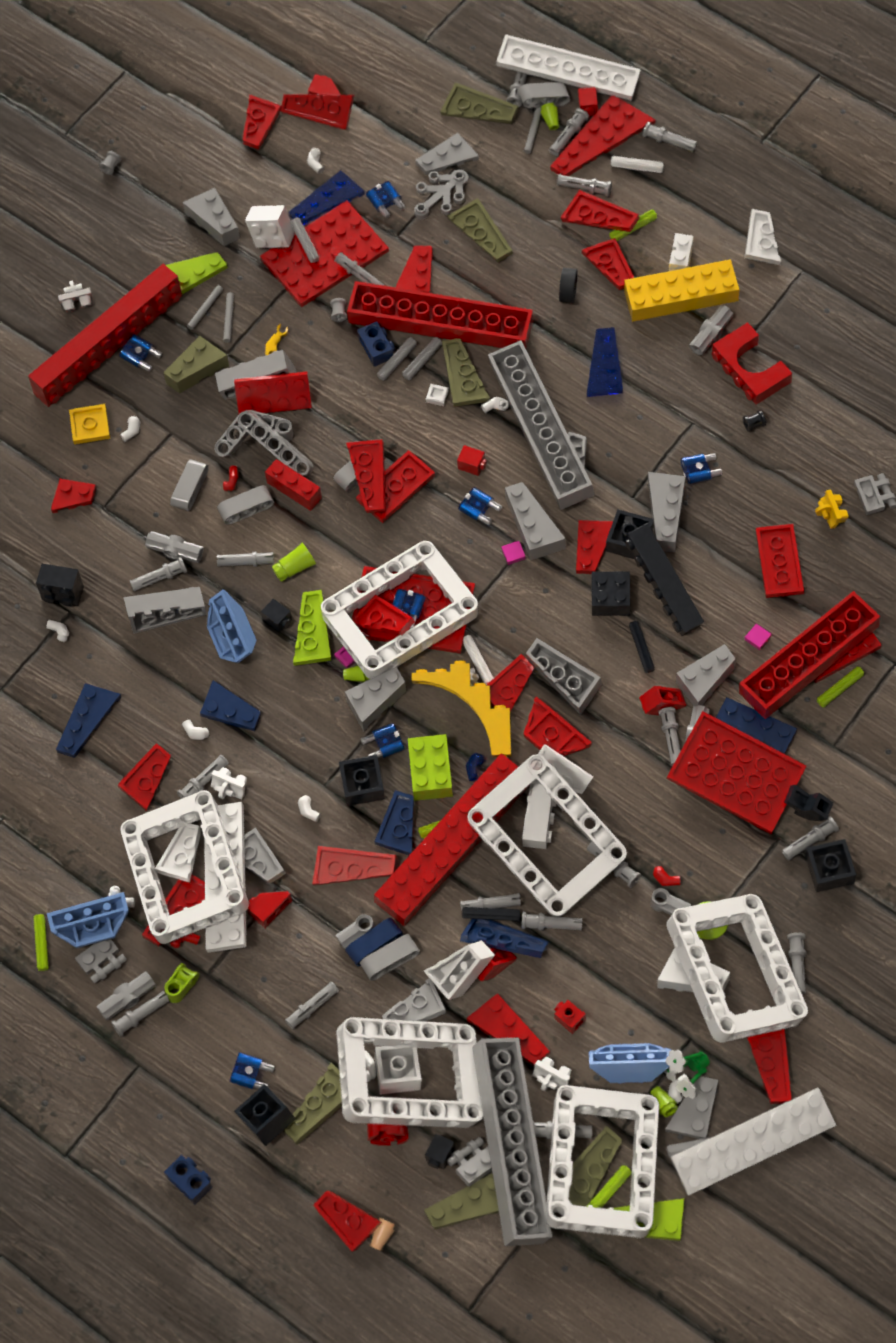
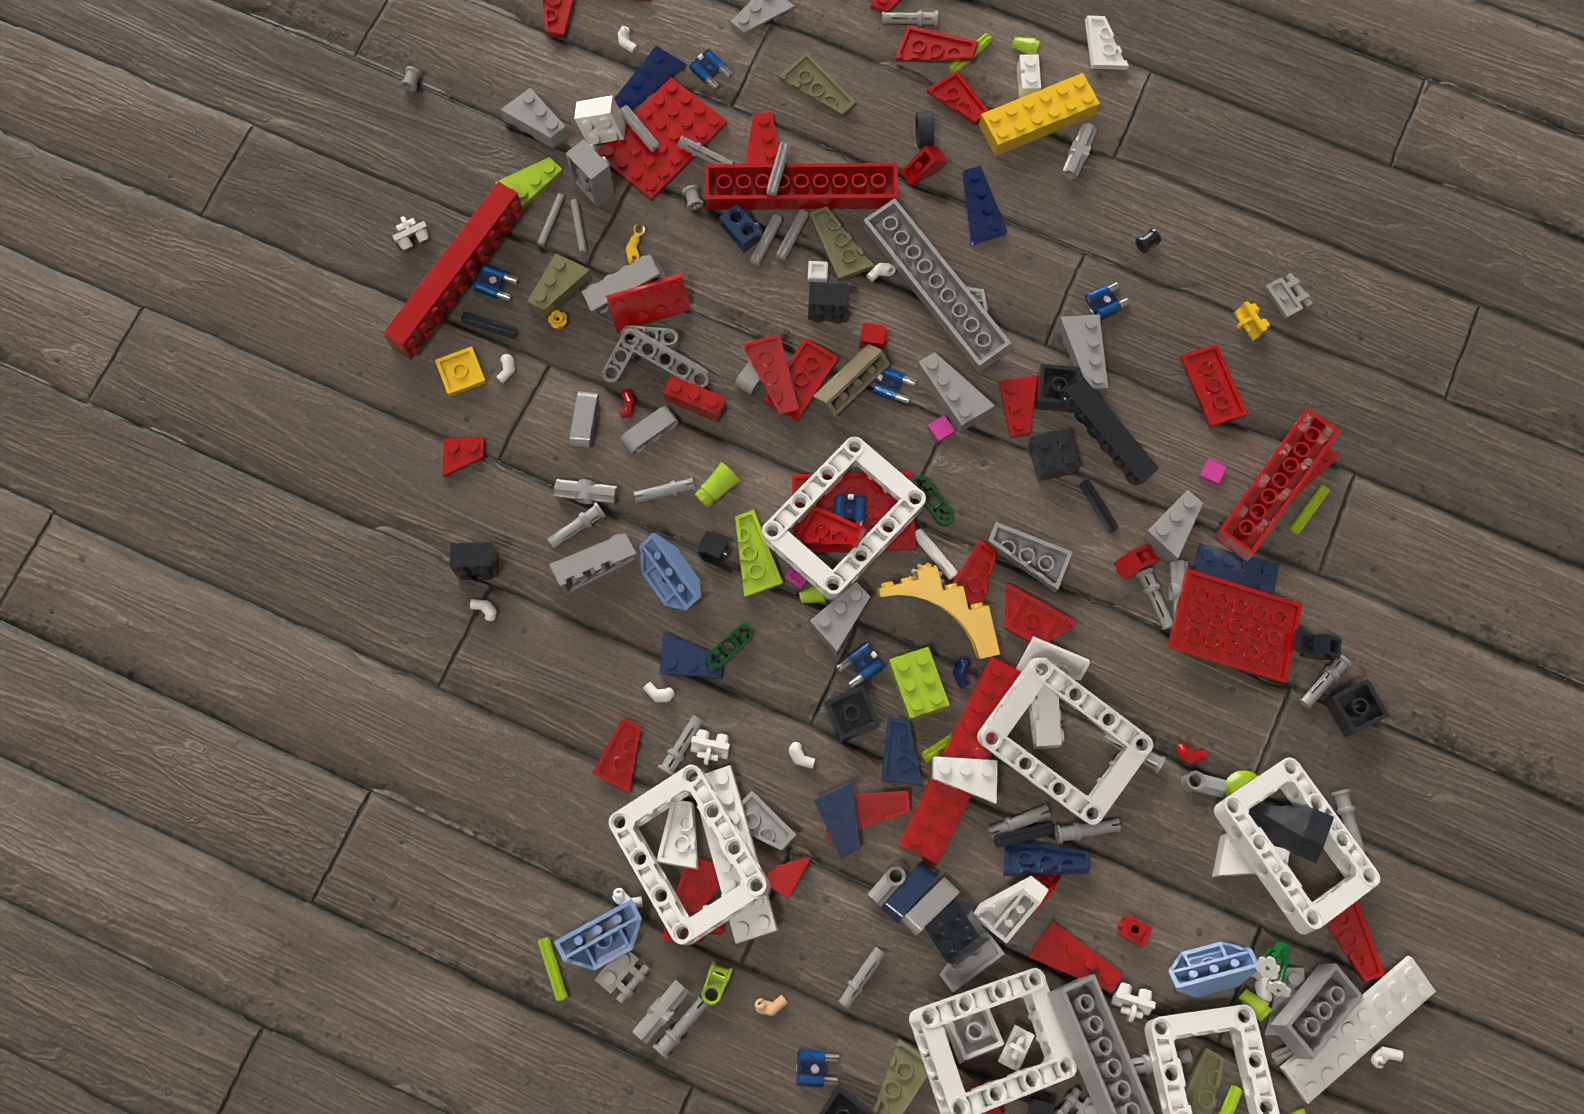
camera: 20 degrees left, 10 degrees up
(87, 714) = (538, 700): dark blue wing -> none
(125, 389) = (489, 325): none -> black axle
(188, 399) = (561, 322): none -> yellow plate
(222, 1013) = (768, 1007): none -> light nougat arm
(249, 270) = (590, 172): none -> light grey brick
(262, 709) = (731, 638): none -> dark green beam
(327, 865) = (840, 819): none -> dark blue wing
(405, 979) = (957, 932): none -> black brick
(420, 296) = (778, 169): none -> light grey axle
(434, 1087) = (1016, 1048): none -> white hips
(436, 421) = (828, 302): none -> black brick
(440, 493) = (851, 380): none -> dark tan brick
(441, 191) = (766, 50): light grey plant -> none
(451, 847) = (970, 775): none -> white wing
(487, 621) = (941, 502): none -> dark green beam
(561, 317) = (924, 165): none -> red slope
(688, 227) = (1027, 45): none -> lime cone
(714, 1111) = (1316, 1011): none -> light grey brick
(738, 954) = (1294, 829): none -> black wedge
(755, 385) = (1139, 202): red arch -> none
(772, 1169) = (1384, 1054): none -> white arm

